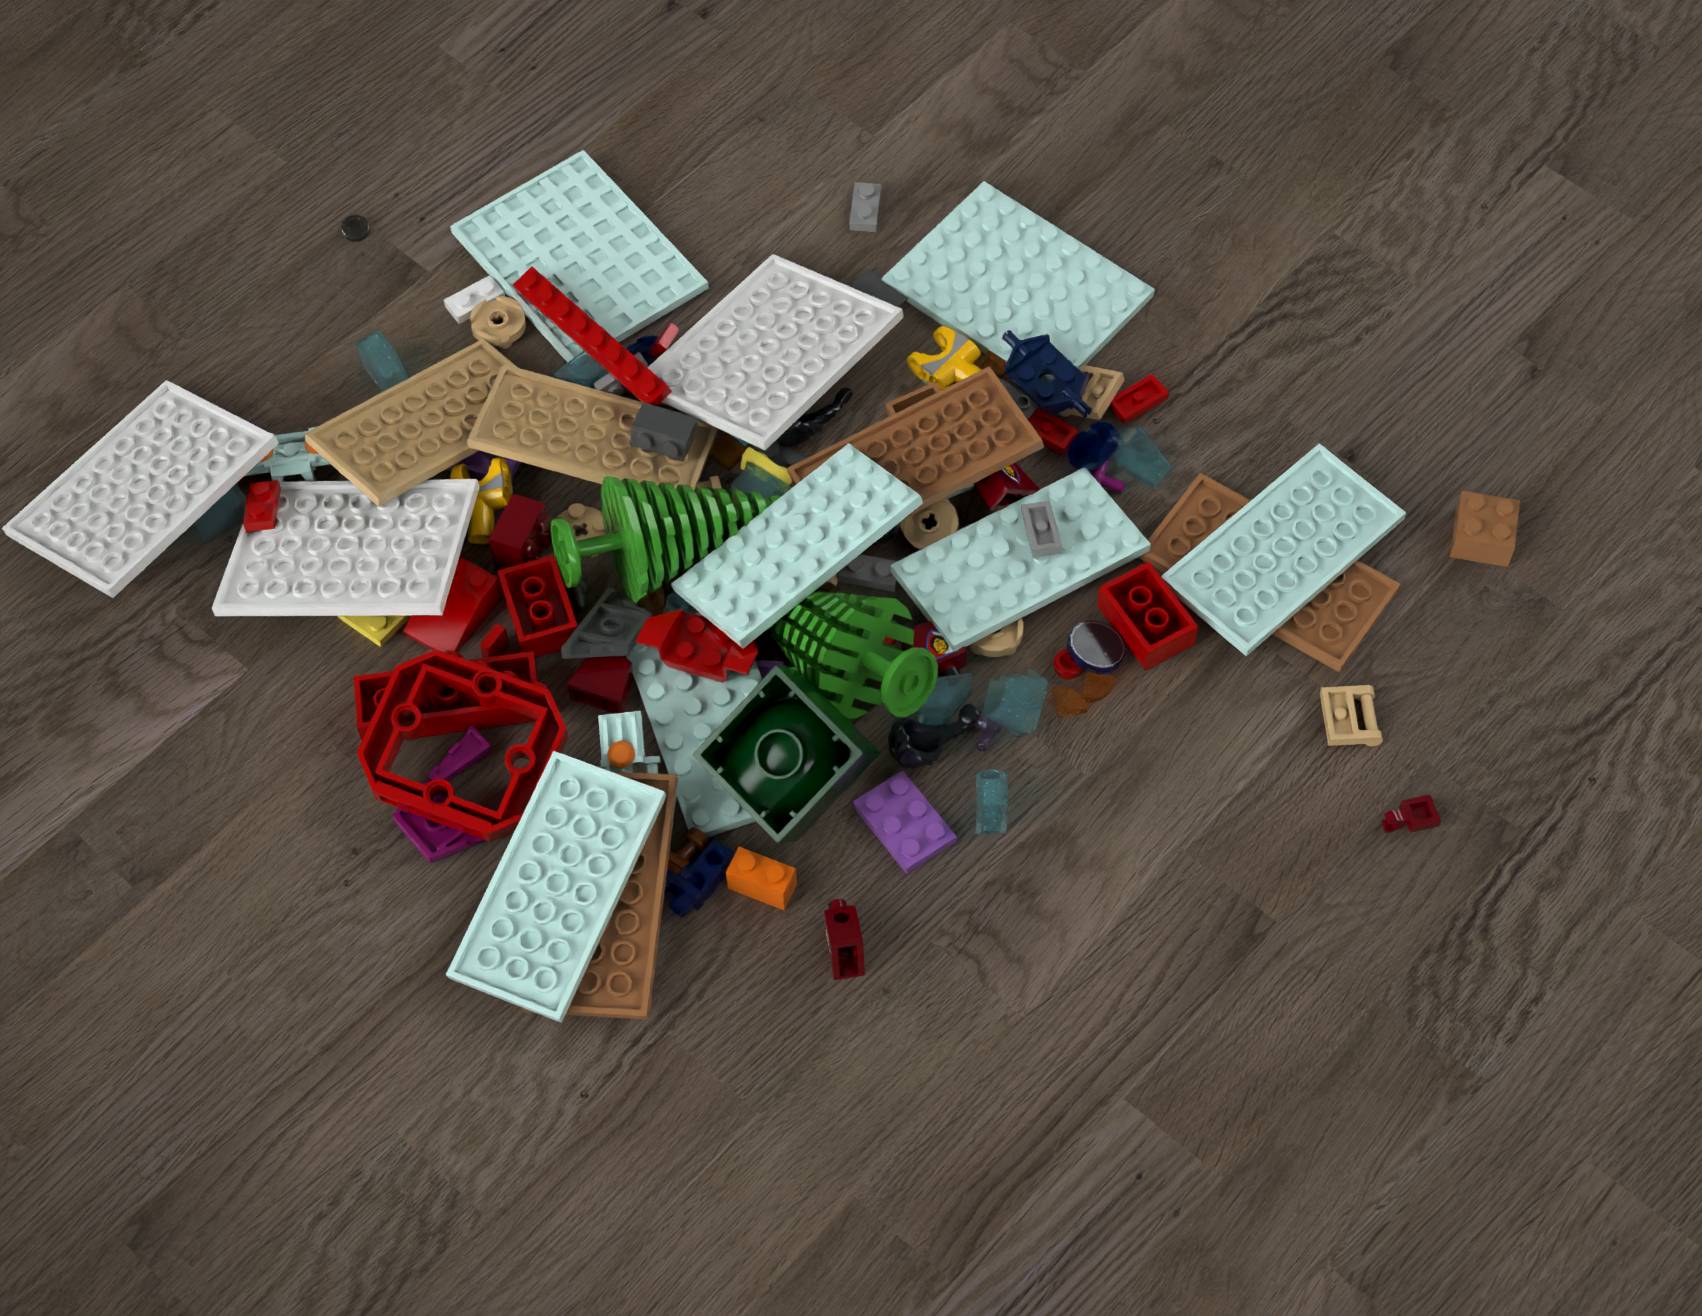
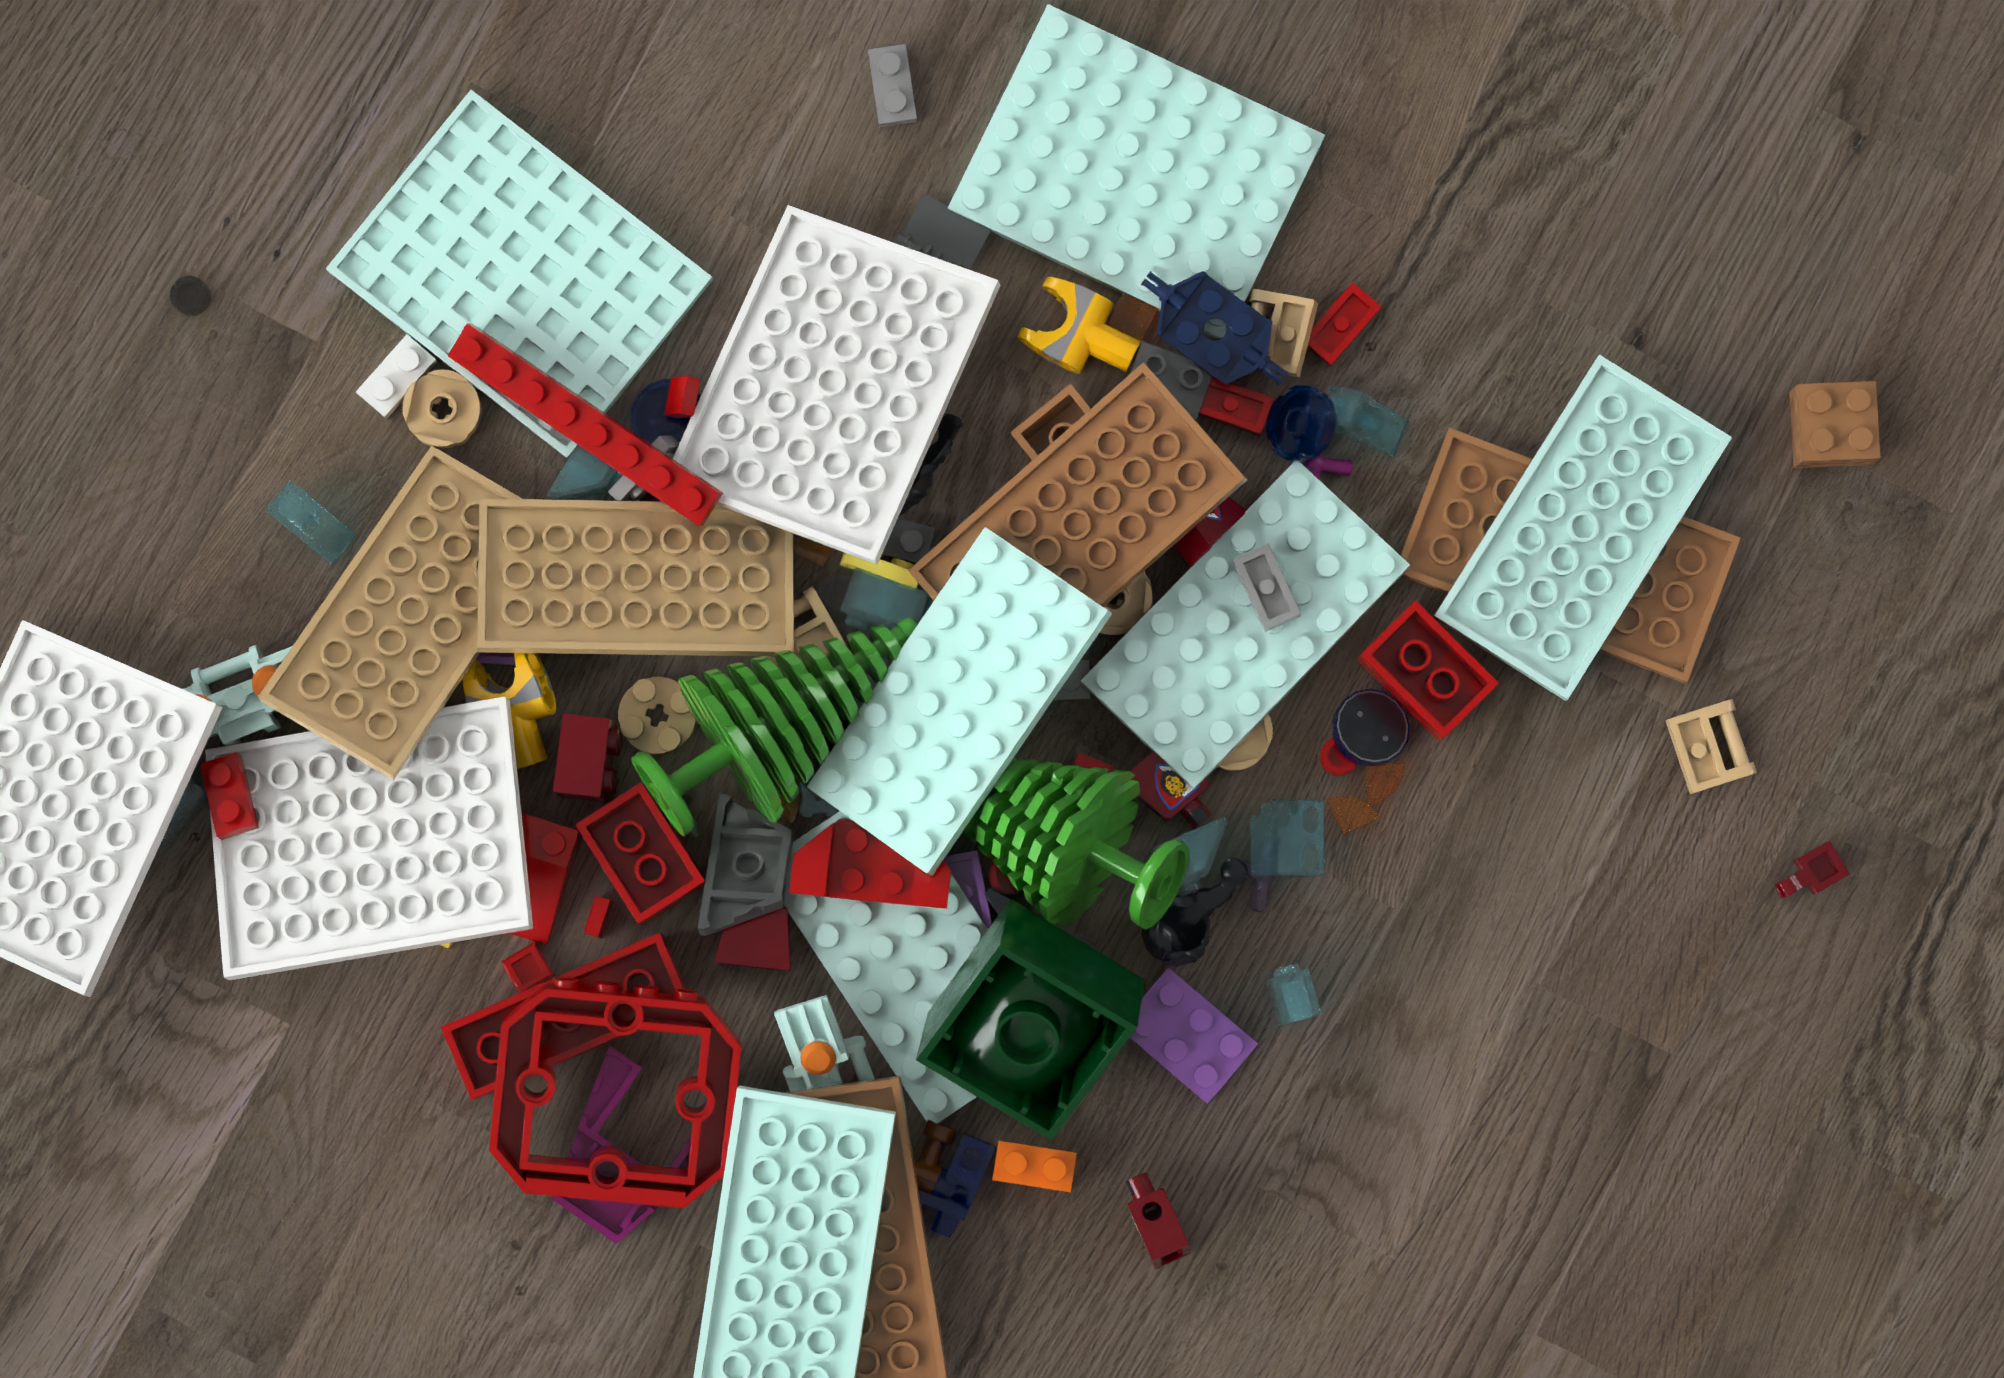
camera: 15 degrees left, 25 degrees up
(663, 431) = (729, 558): dark grey brick -> none

